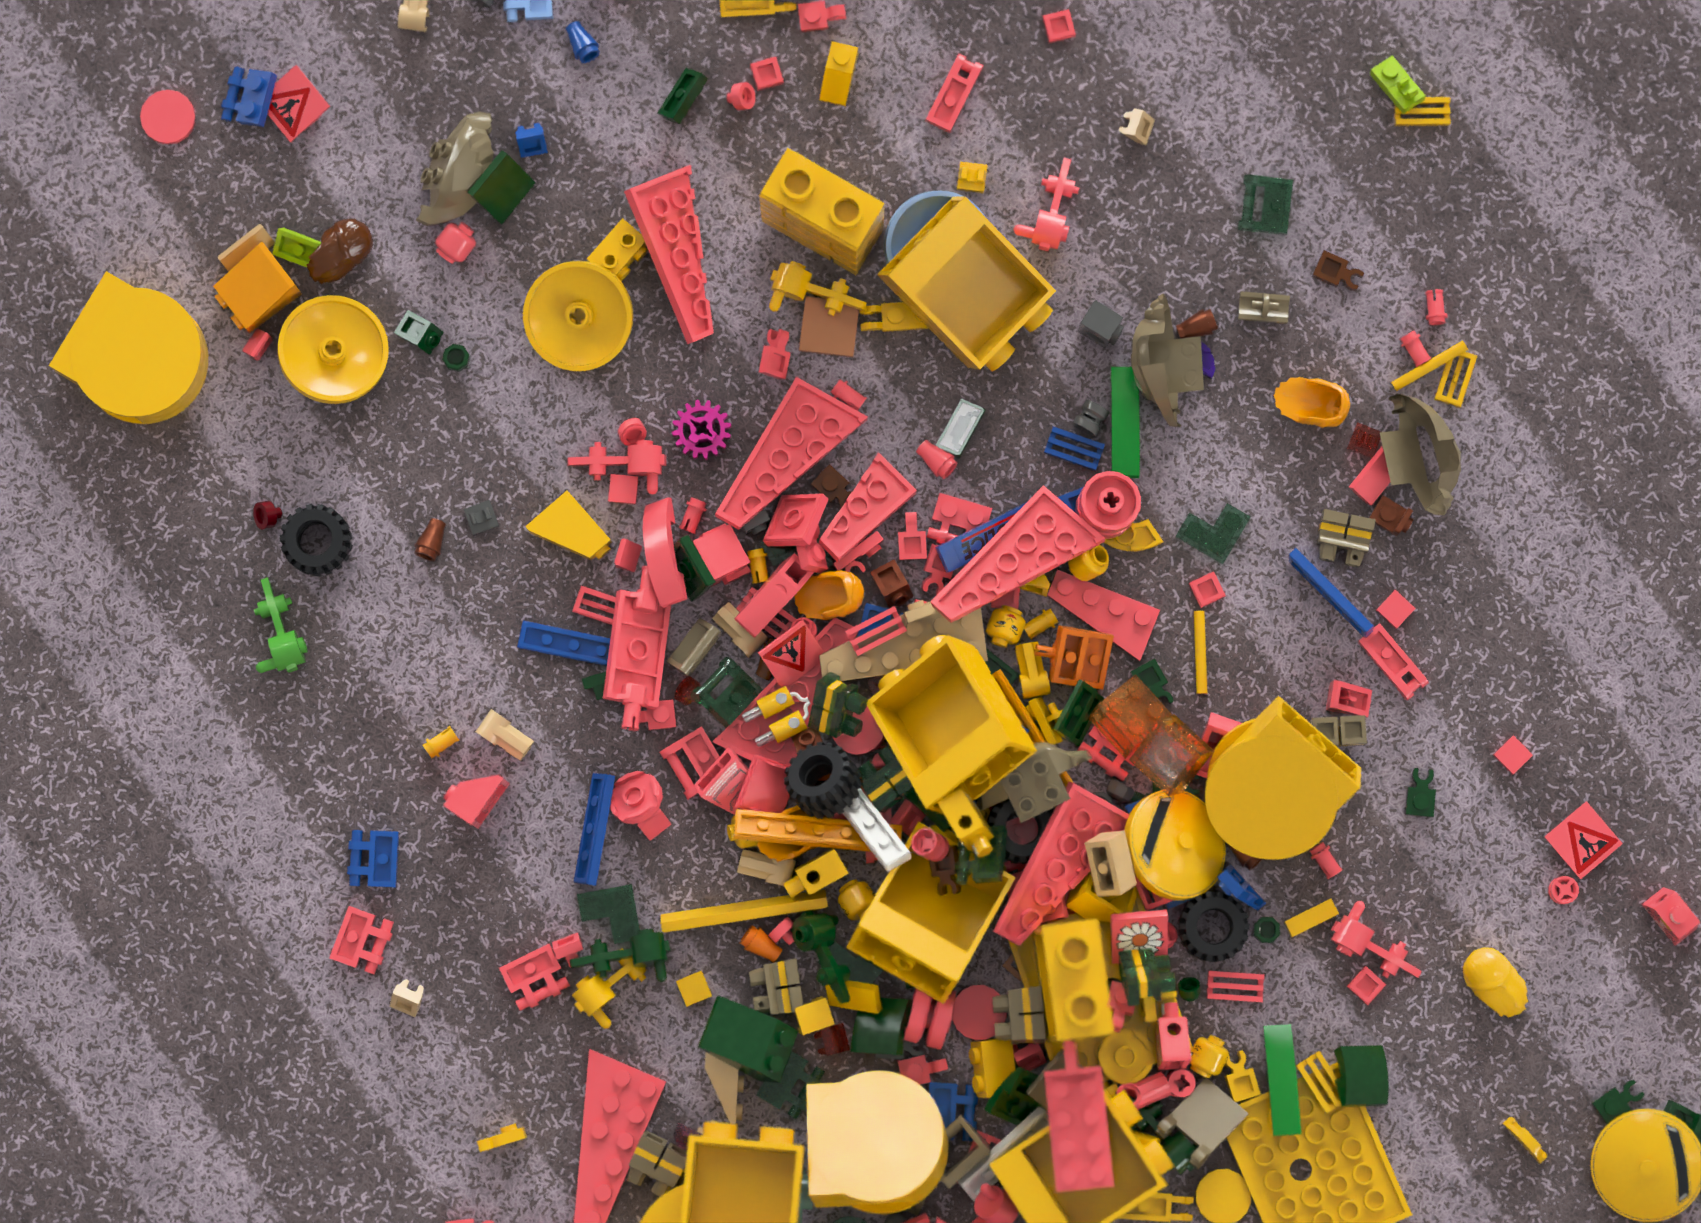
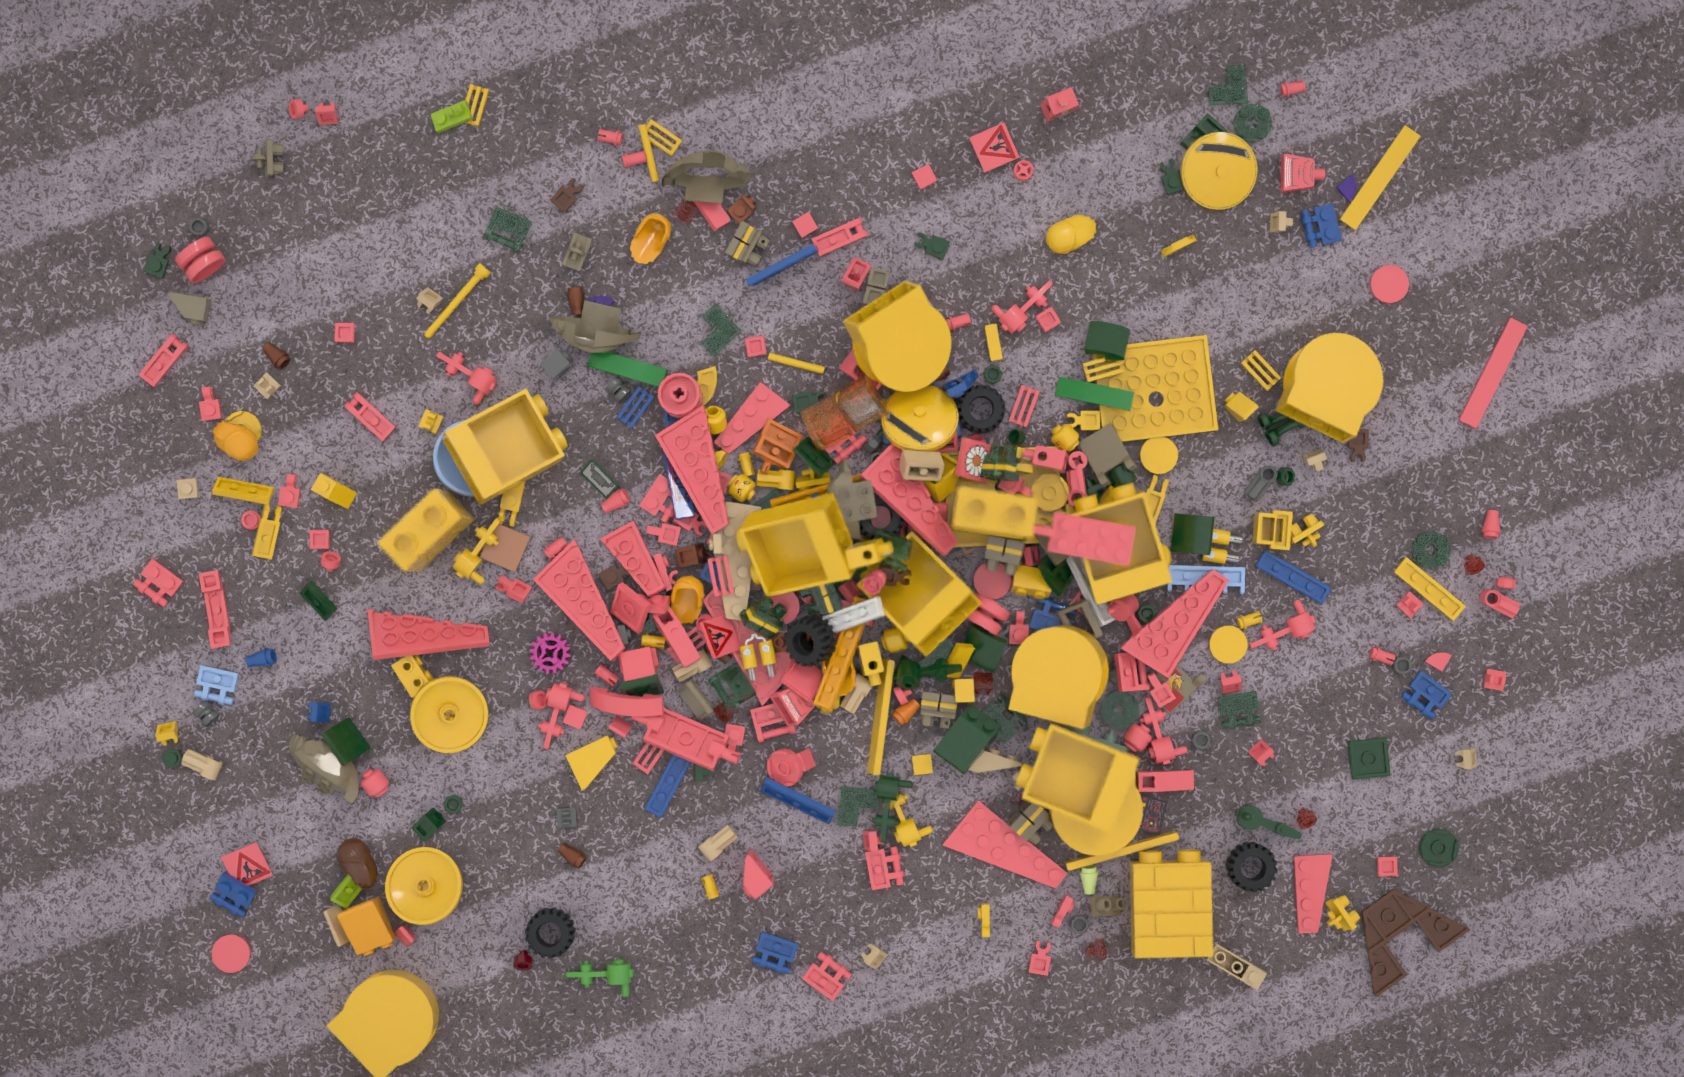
camera: 70 degrees left, 5 degrees up
(1194, 185) = (480, 273): none -> yellow piece

